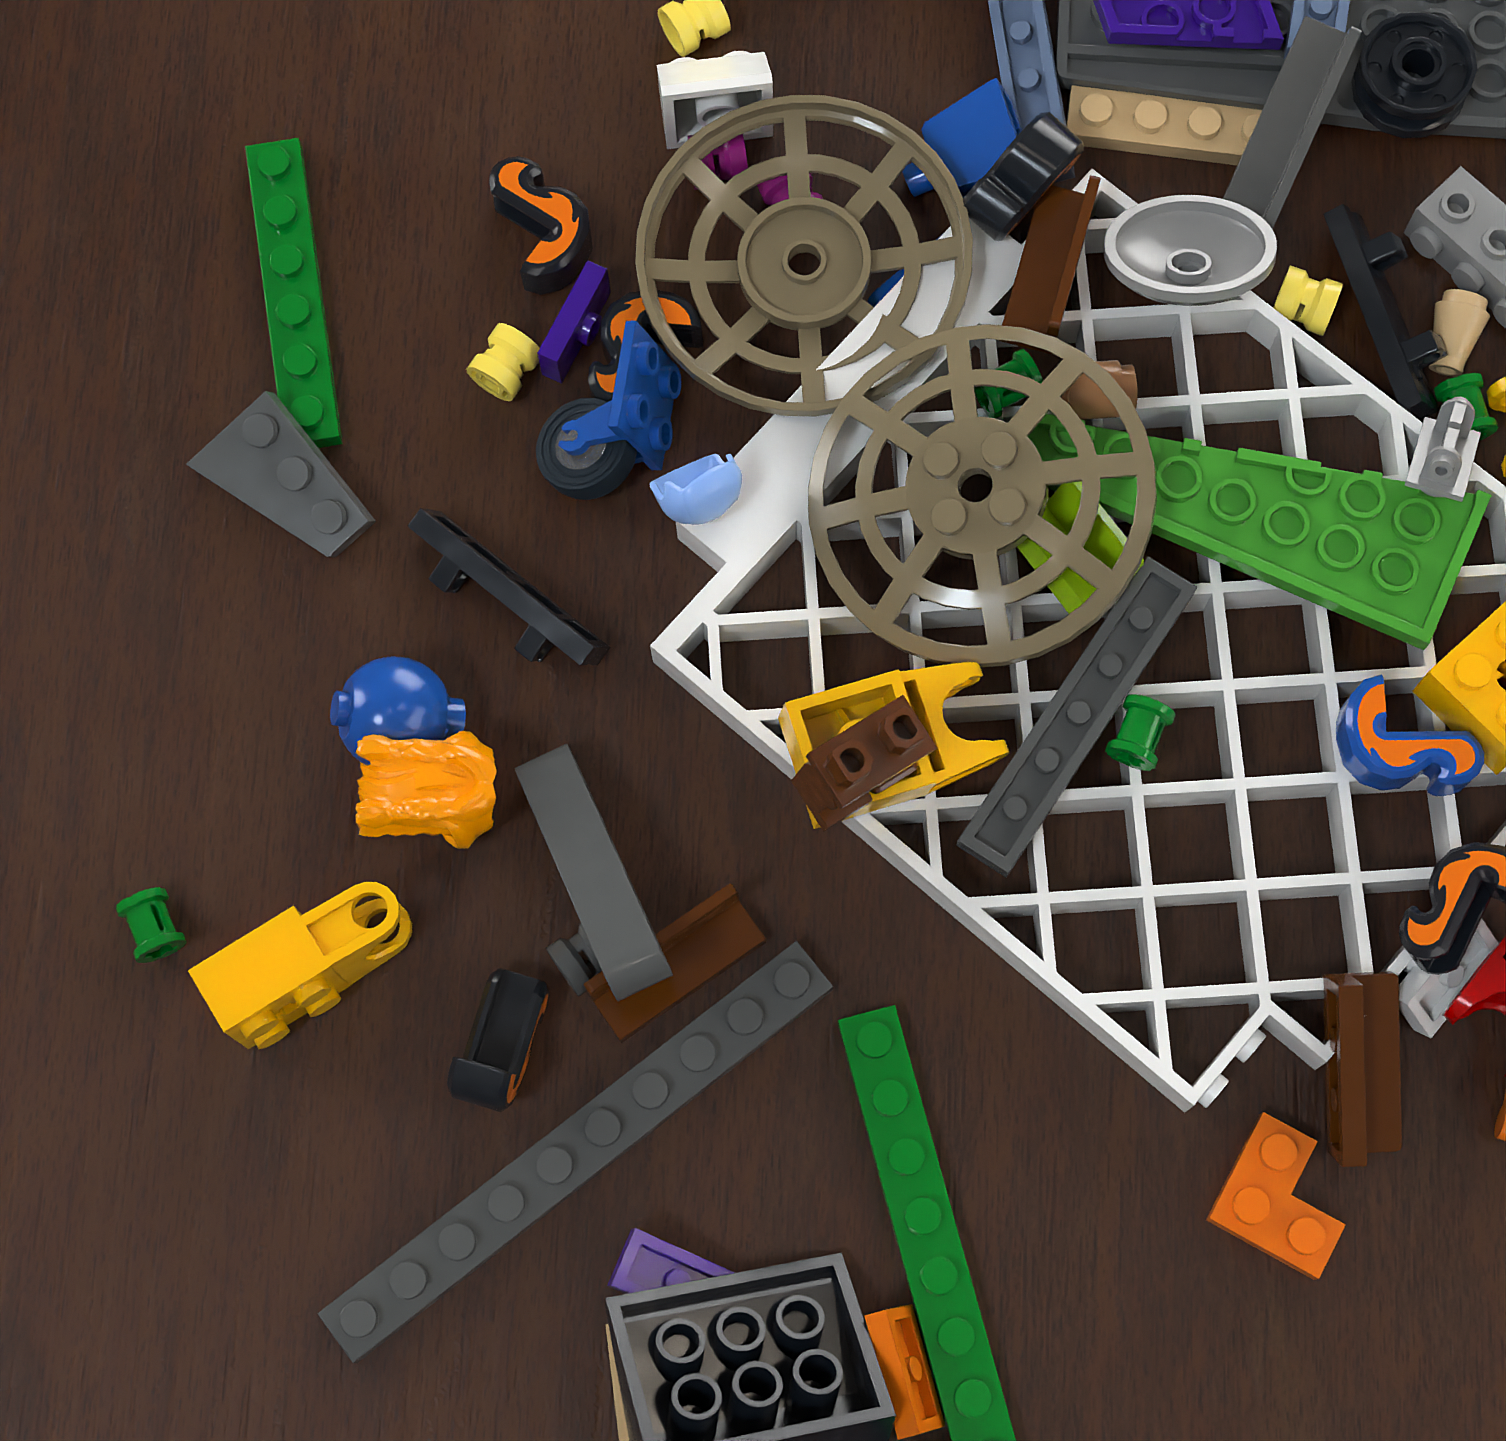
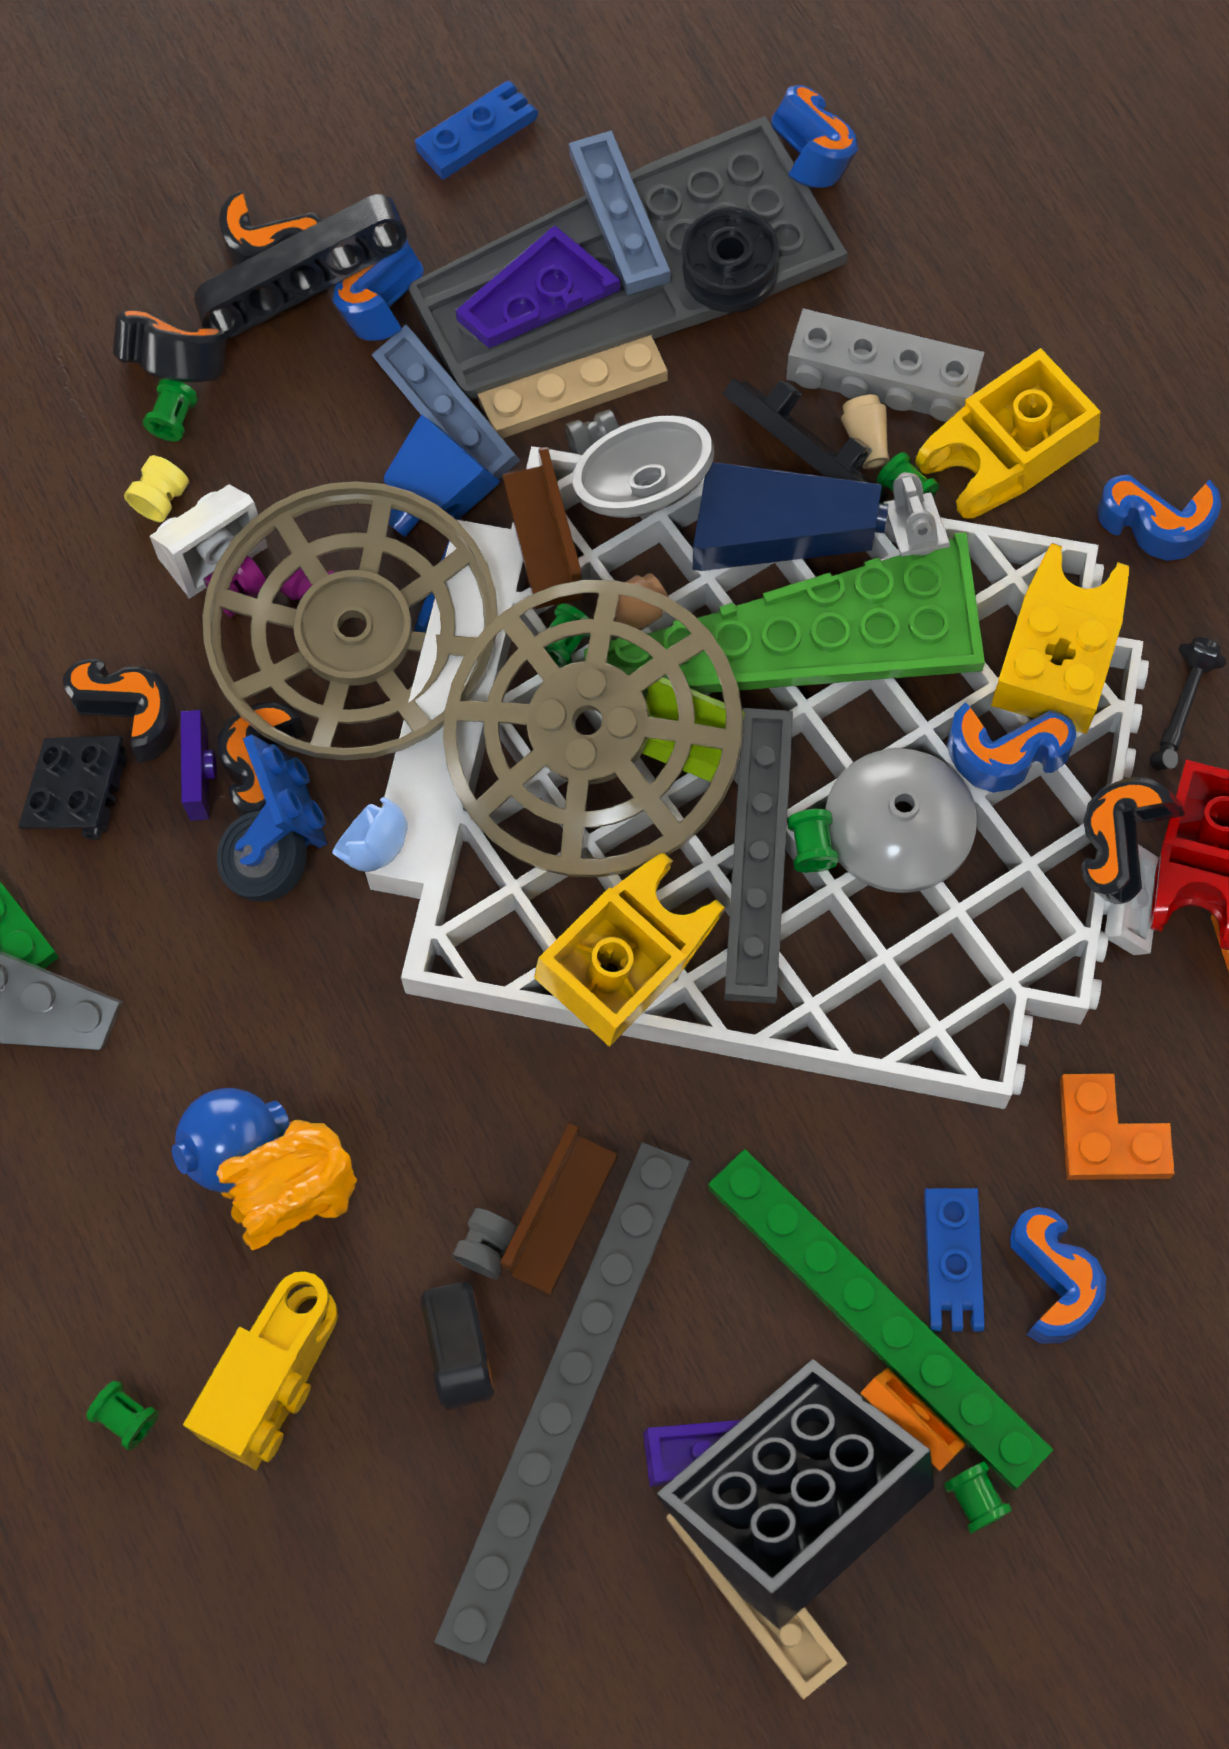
camera: 30 degrees left, 5 degrees down
(448, 278) = (75, 784): none -> black hinge
(468, 558) = (215, 989): black hinge -> none
(503, 364) = (156, 825): light yellow wheel -> none
(593, 873) = (458, 1173): dark grey beam -> none
(862, 760) = (627, 966): reddish brown hips -> none
(1022, 175) = (485, 476): black animal -> none
(1042, 1232) = (953, 1257): none -> blue hinge
(1148, 1312) = (1065, 1268): none -> blue animal
(1155, 183) = (583, 435): none -> dark grey wheel
(1238, 795) = (894, 847): none -> light grey dish
(1291, 117) = (659, 334): dark grey panel -> none
(1305, 376) = (782, 516): none -> dark blue slope
(1307, 300) = (755, 454): light yellow wheel -> none
(1365, 1068) = (1117, 998): reddish brown panel -> none

